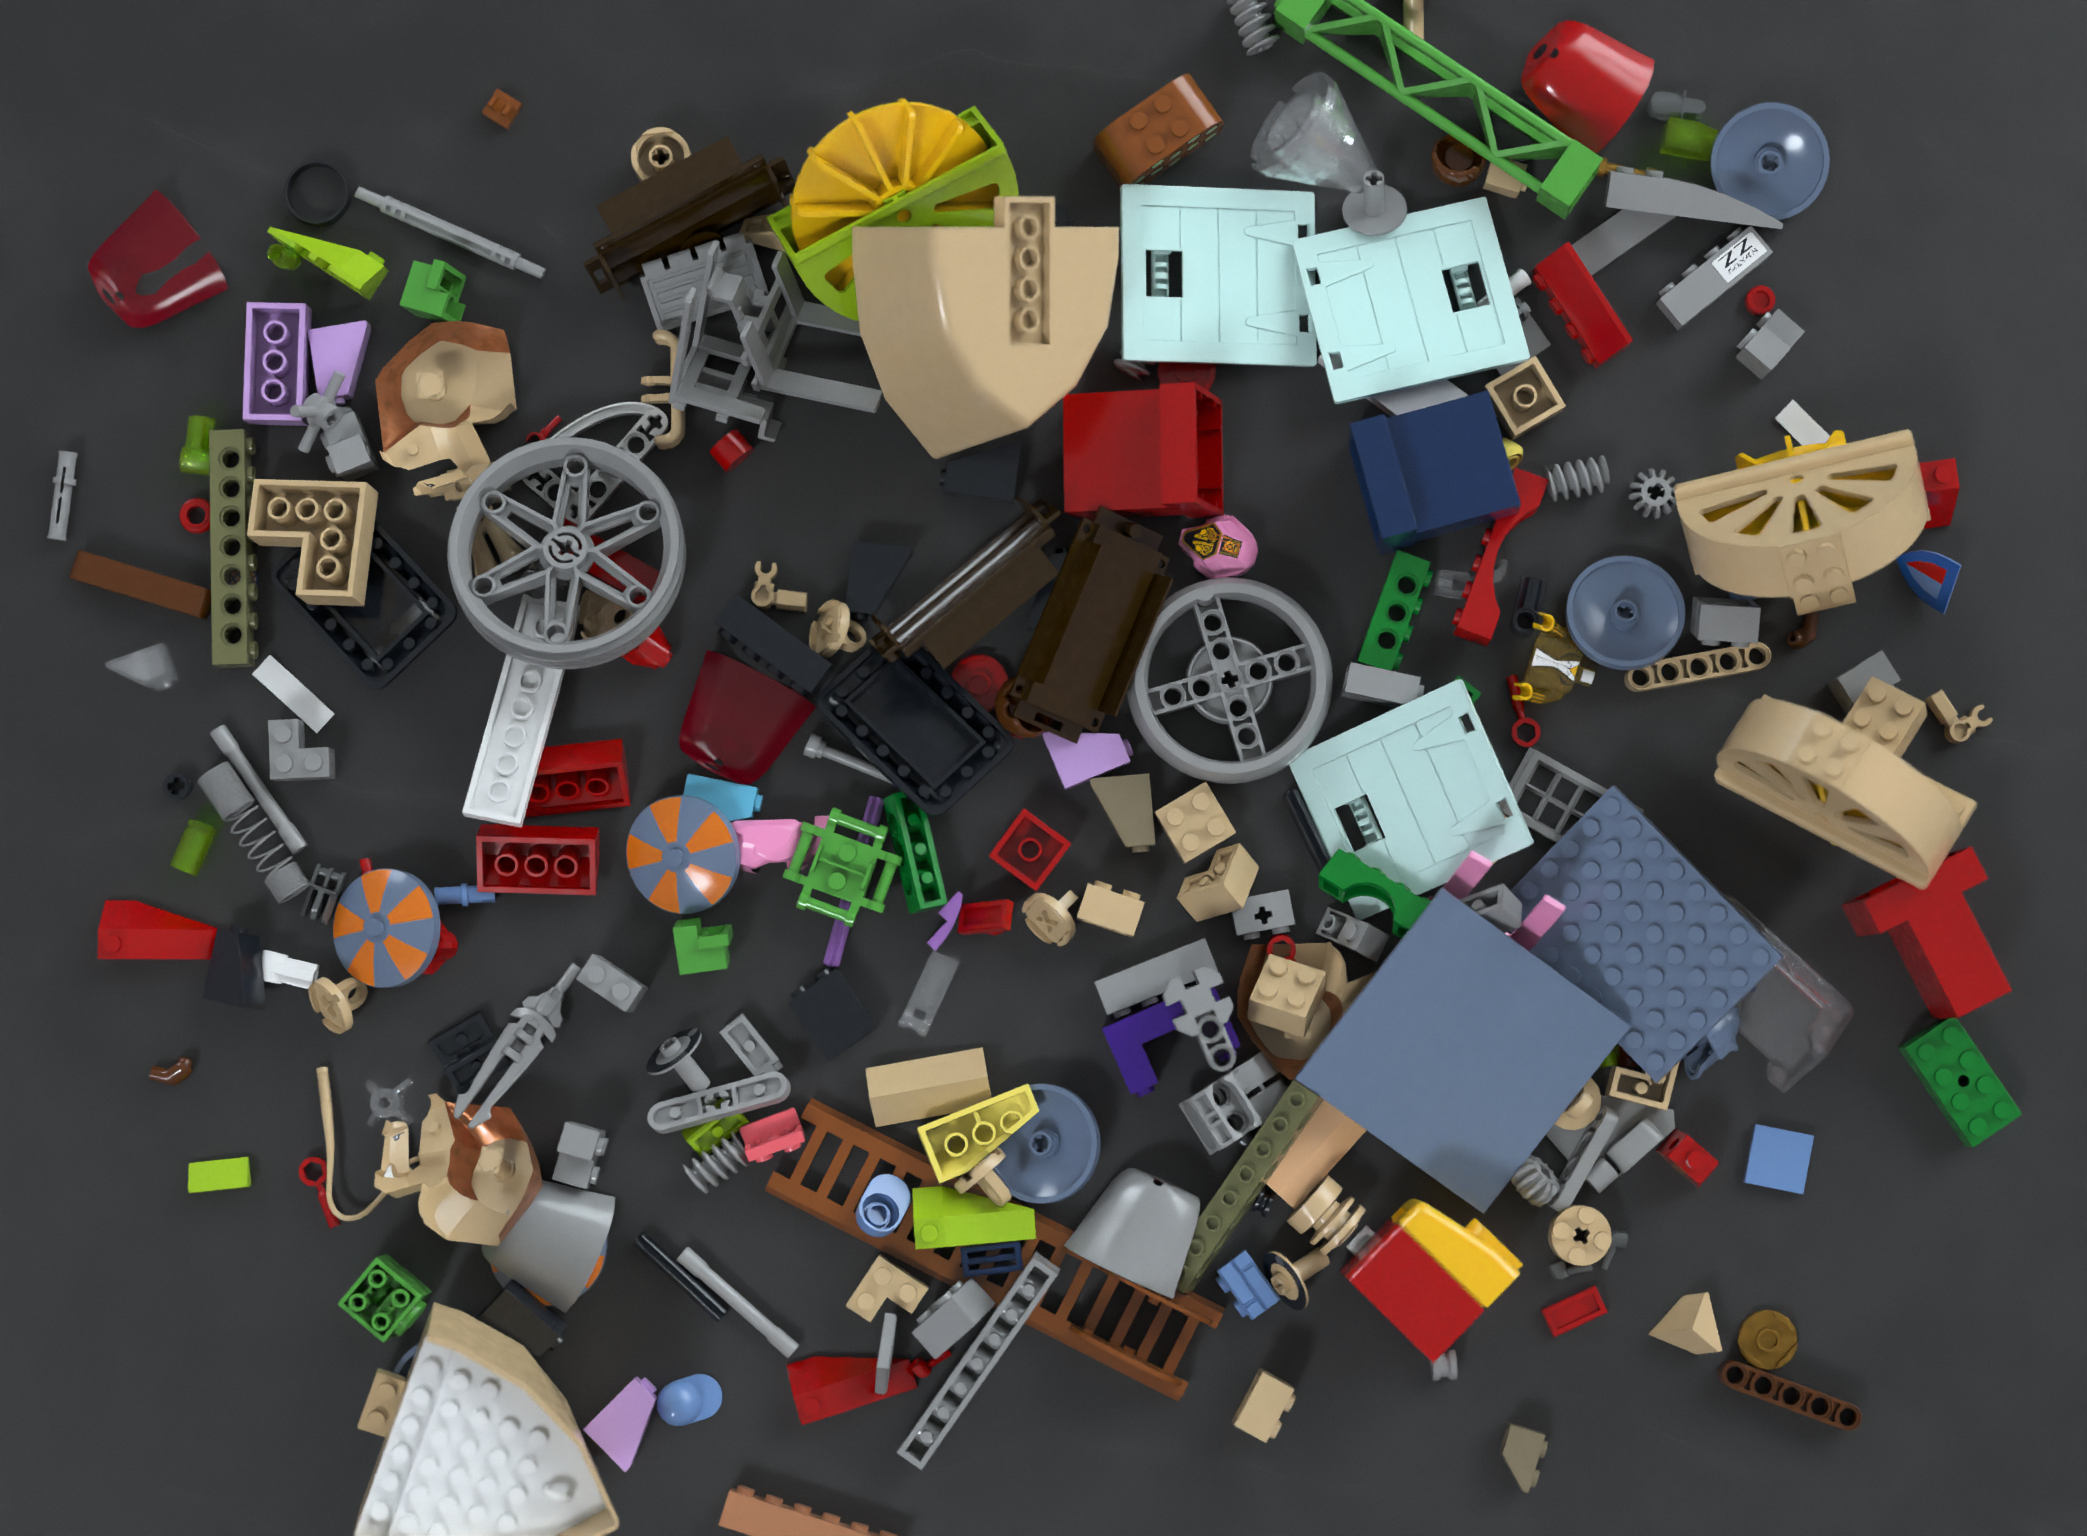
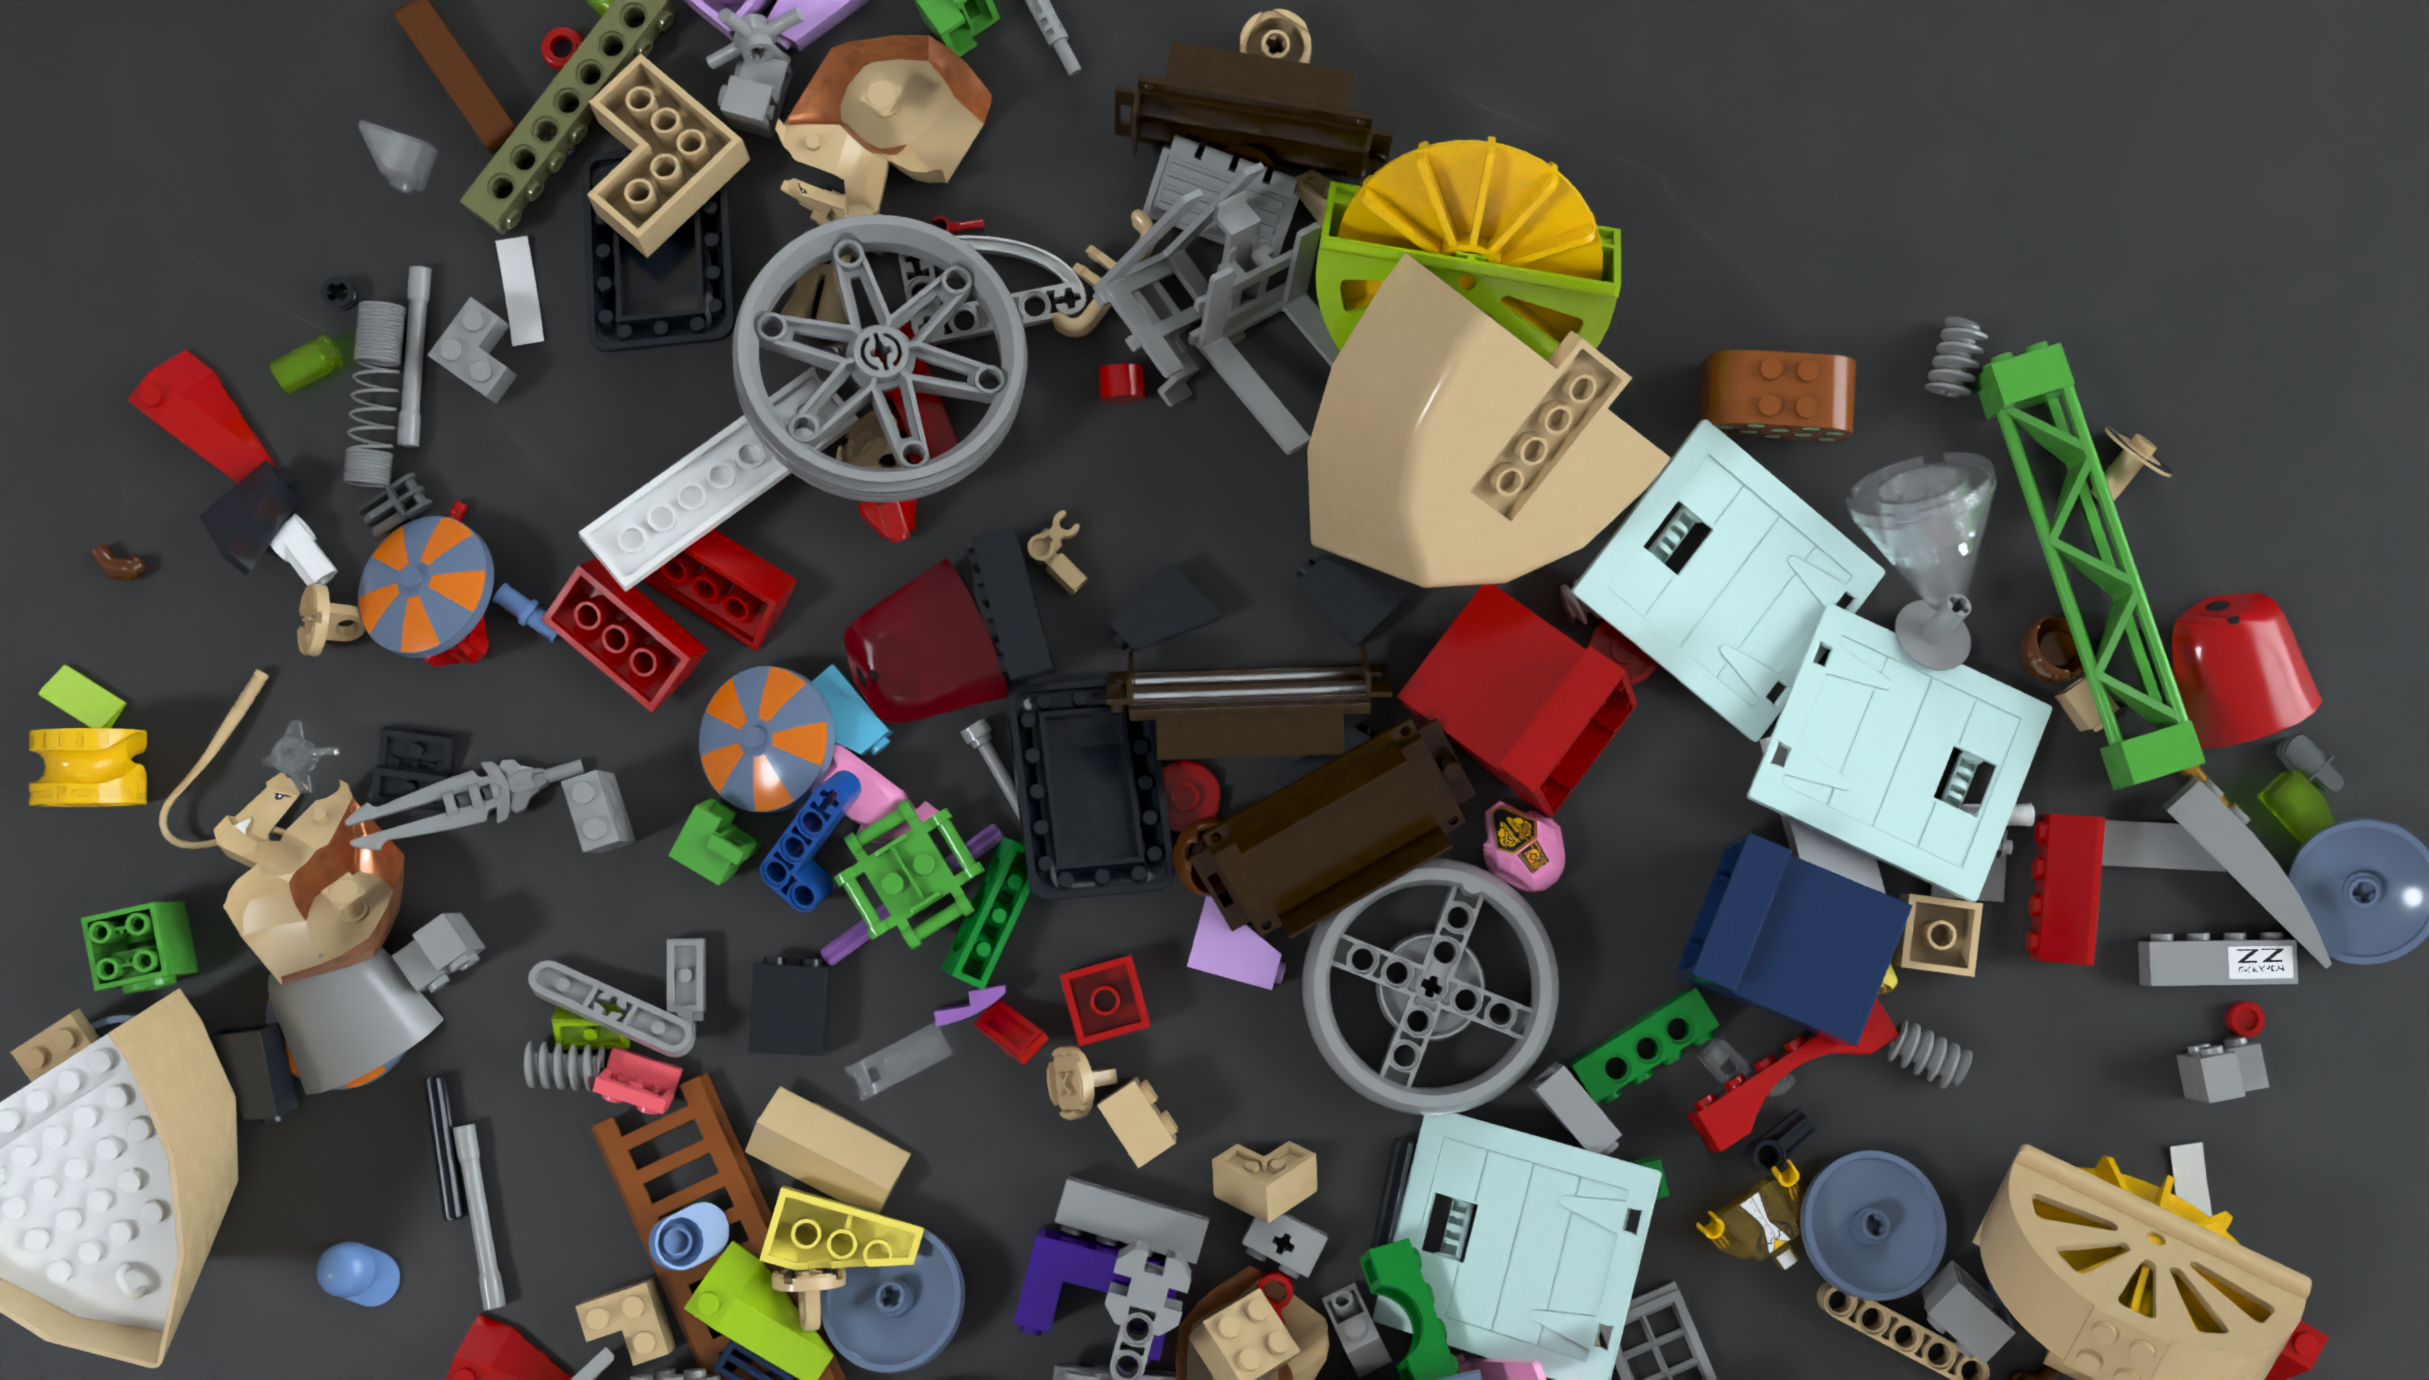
camera: 35 degrees right, 0 degrees up
(262, 1210) = (89, 767): none -> yellow piece
(331, 1219) = (171, 782): red piece -> none
(624, 1422) = (276, 1246): lavender slope -> none
(676, 1054) = (606, 930): light grey piece -> none
(761, 889) = (789, 864): none -> blue beam
(831, 630) = (1082, 631): tan tile -> none
(1128, 807) = (1234, 1034): dark tan slope -> none
(1195, 822) = (1288, 1099): tan brick -> none
(1518, 706) = (1694, 1234): red piece -> none
(1646, 484) = (1979, 1123): light grey gear -> none

